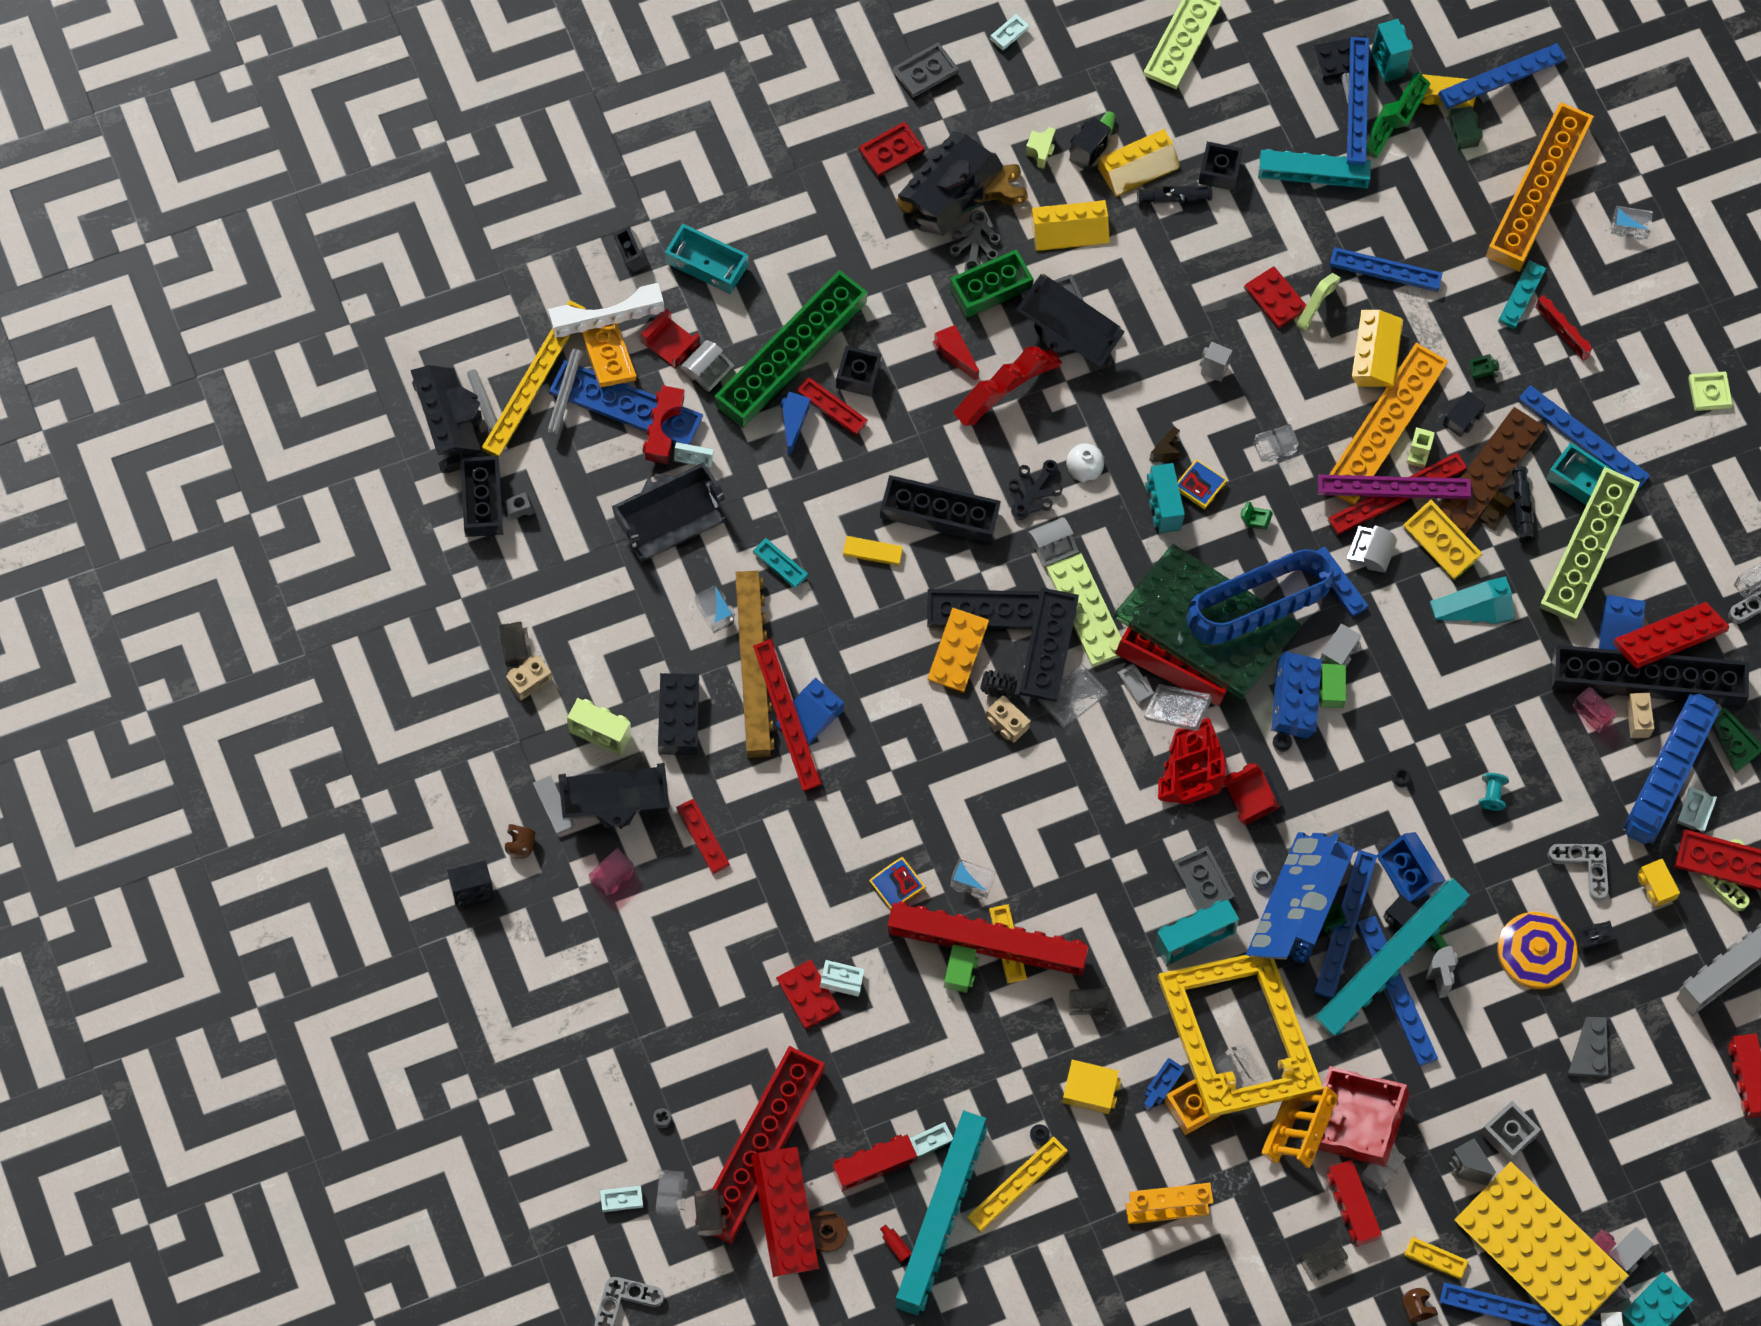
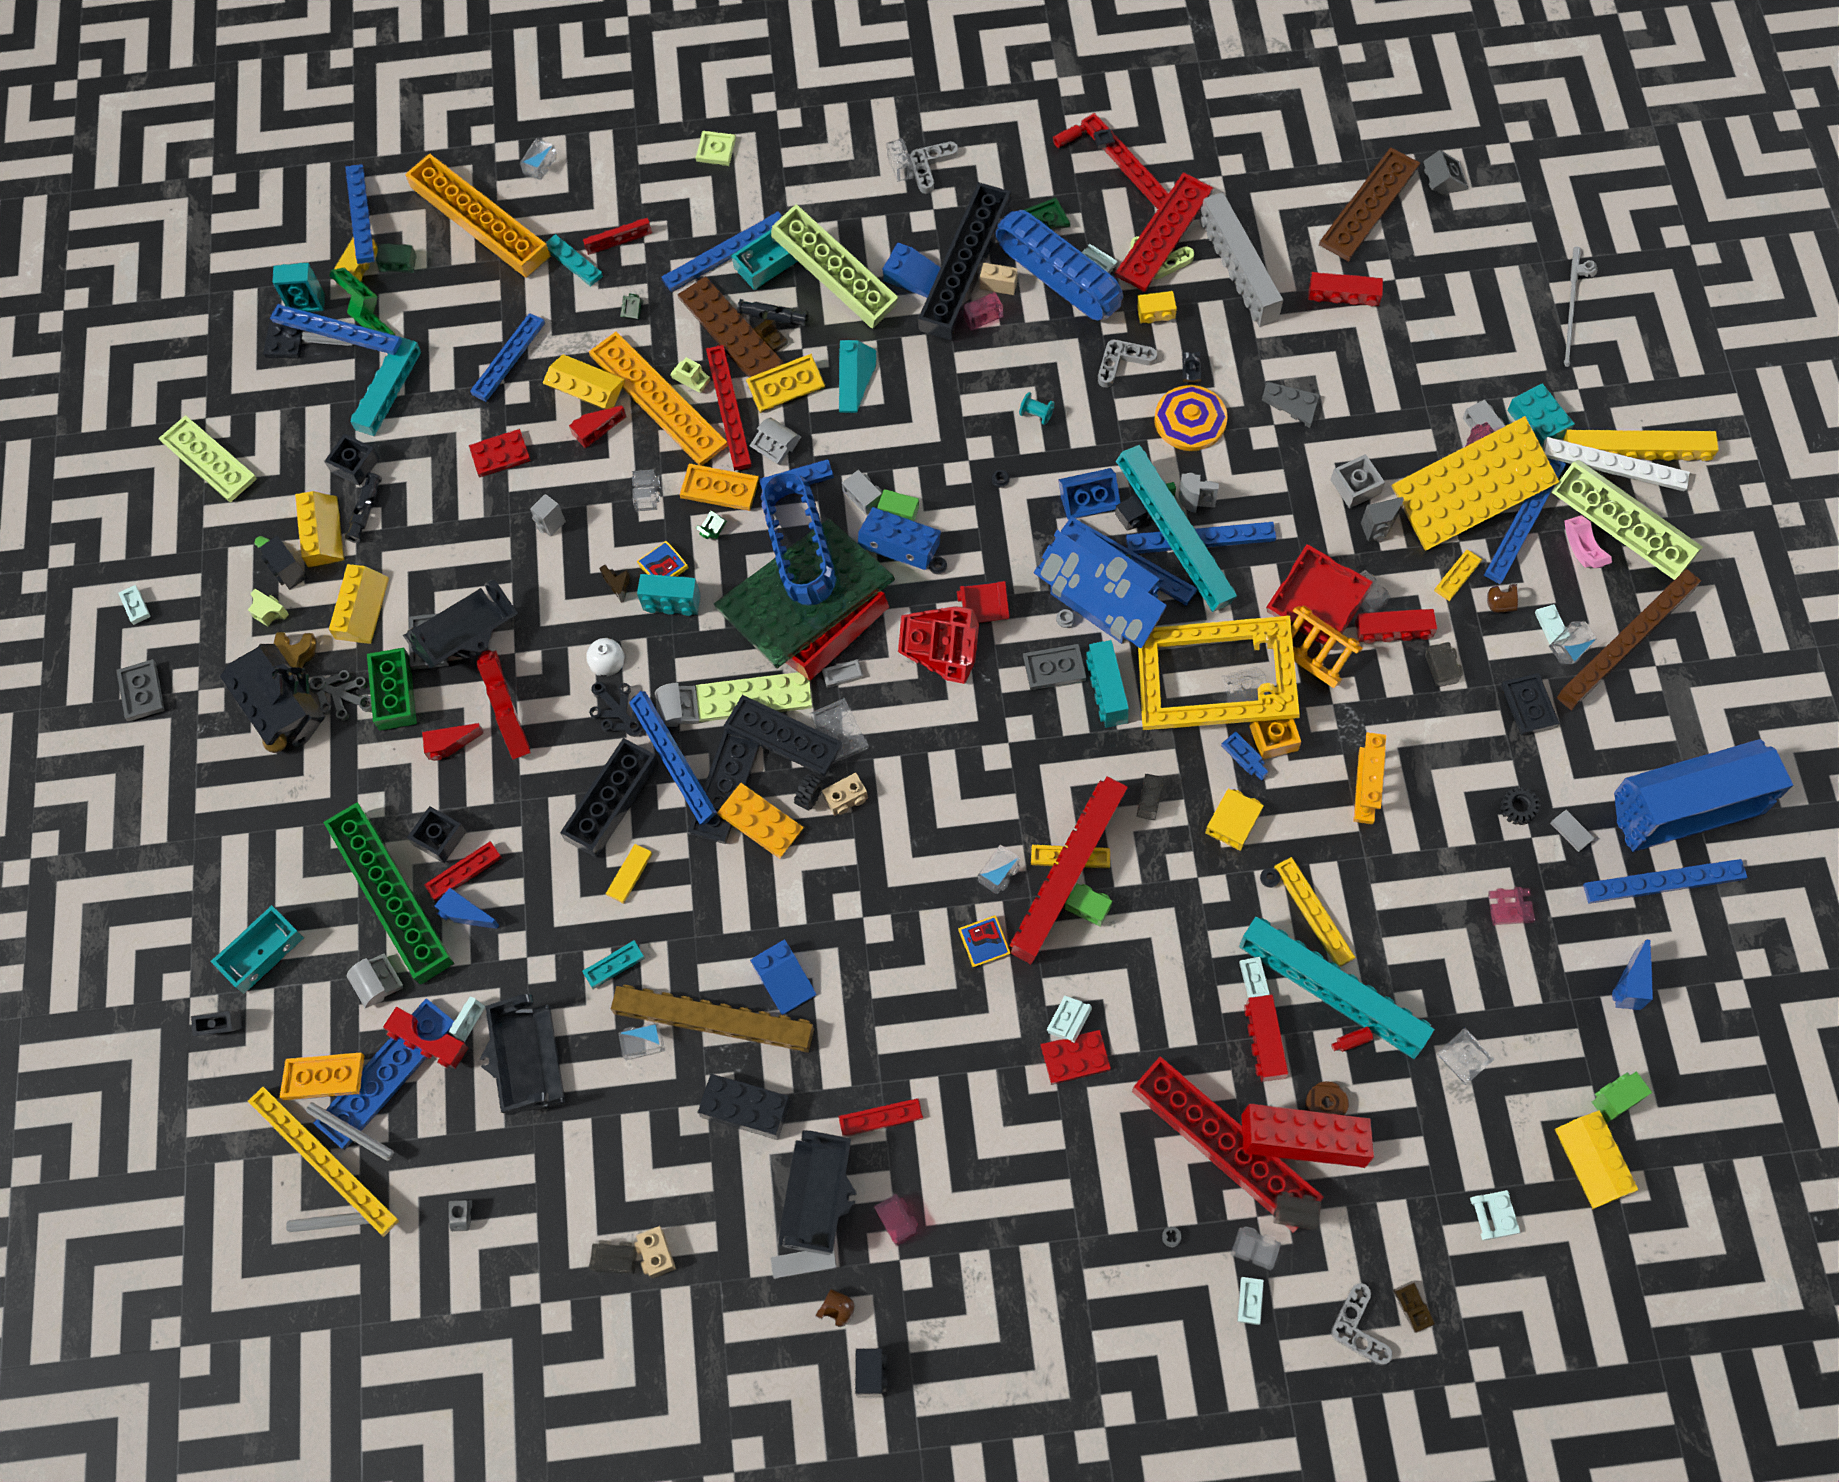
camera: 65 degrees left, 0 degrees up
(450, 414) = (332, 1260): black piece -> none
(481, 496) = (435, 1250): black brick -> none
(570, 320) = (272, 1105): white arch -> none
(599, 726) = (735, 1190): yellowish green brick -> none
(669, 340) = (332, 1010): red panel -> none
(787, 715) = (780, 998): red plate -> none
(891, 149) = (211, 743): red plate -> none
(995, 551) = (672, 758): none -> blue plate
(1178, 707) = (880, 640): clear plate -> none
(1302, 512) = (719, 487): none -> light orange plate
(1323, 289) = (510, 405): yellowish green beam -> none
(1333, 374) = (594, 425): none -> red slope
(1394, 486) = (723, 405): magenta plate -> none
(1464, 414) = (671, 333): black brick -> none
(1671, 635) = (934, 233): red plate -> none

